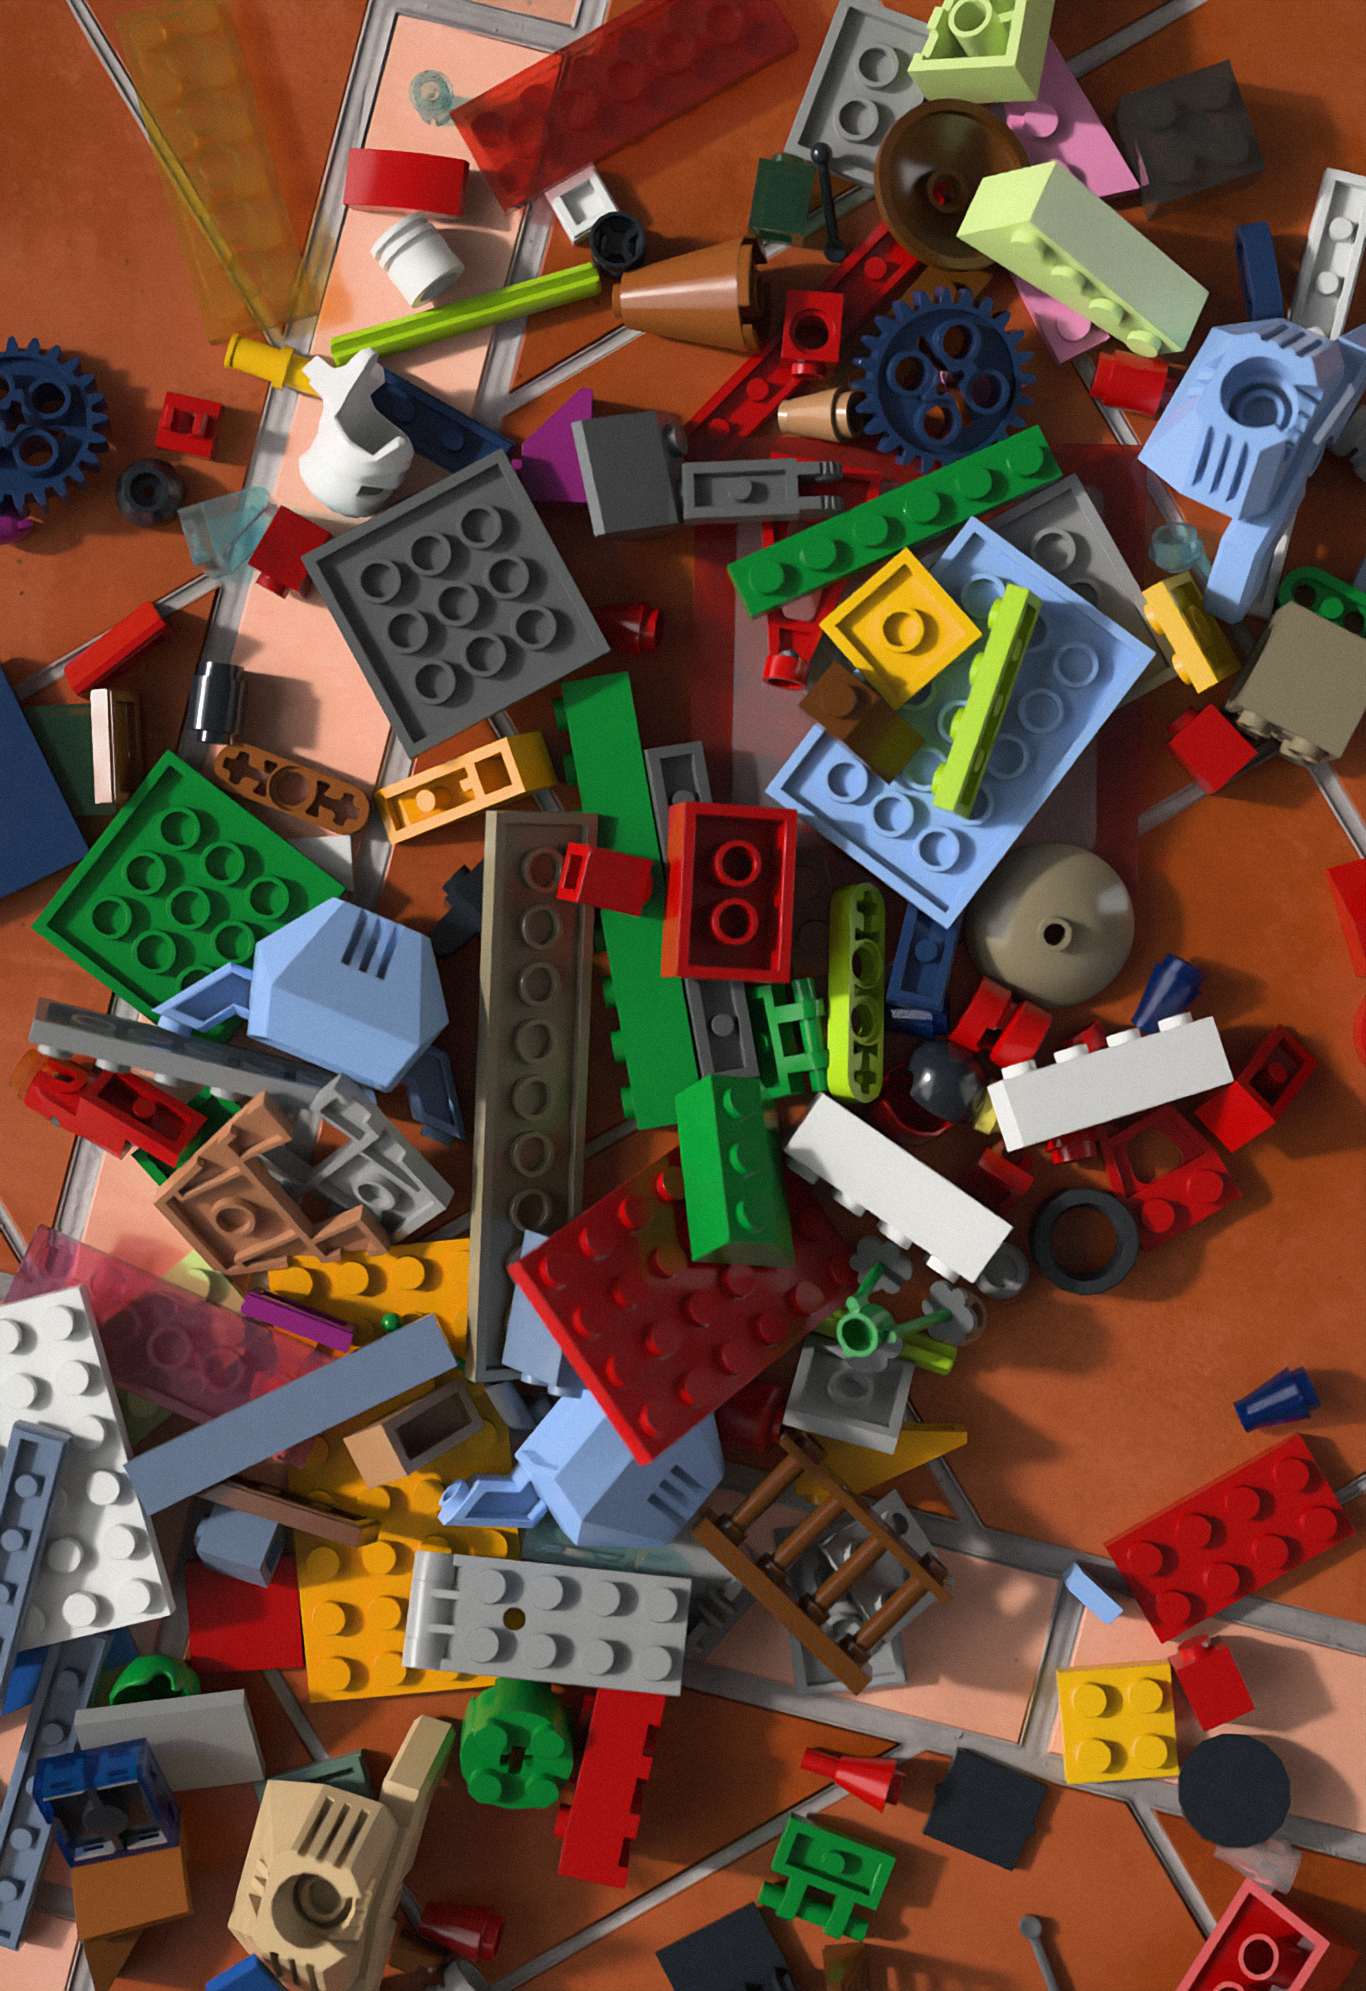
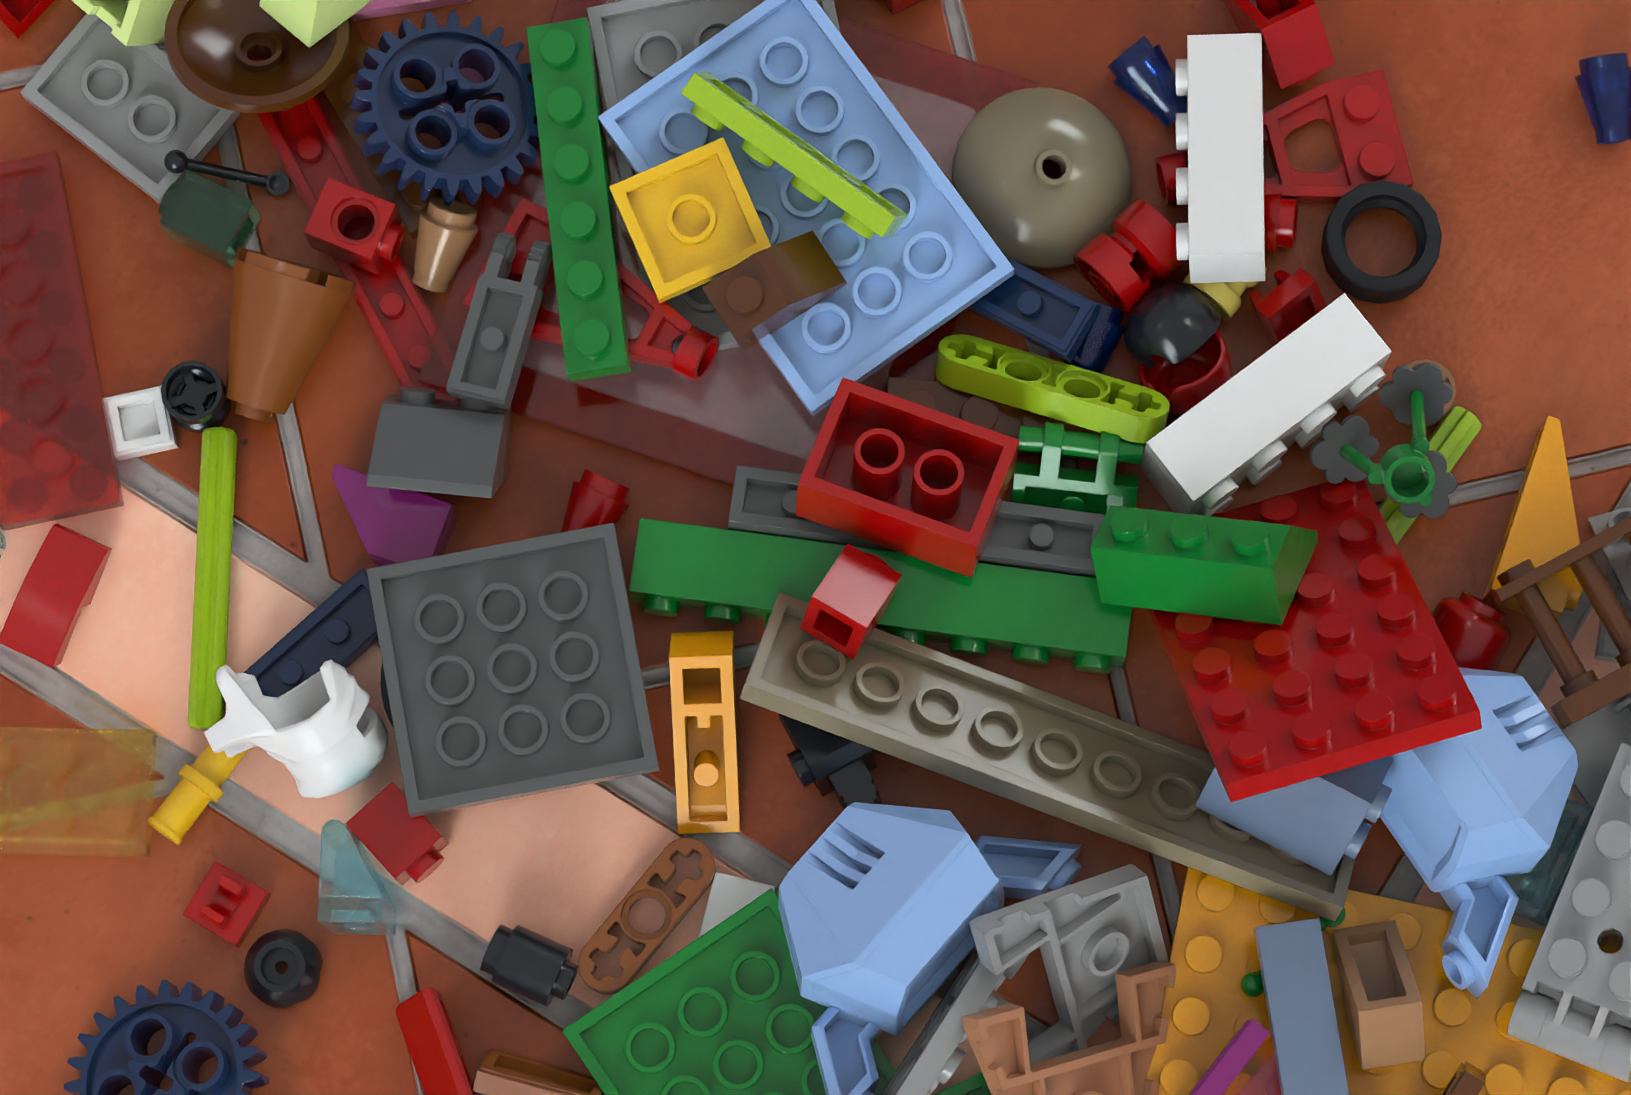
camera: 60 degrees left, 10 degrees down
(417, 259) = (138, 605): white piece -> none
(518, 1410) = (1386, 884): dark grey arm -> none
(846, 1401) = (1478, 528): light grey plate -> none
(1004, 1273) = (1398, 333): light grey tile -> none

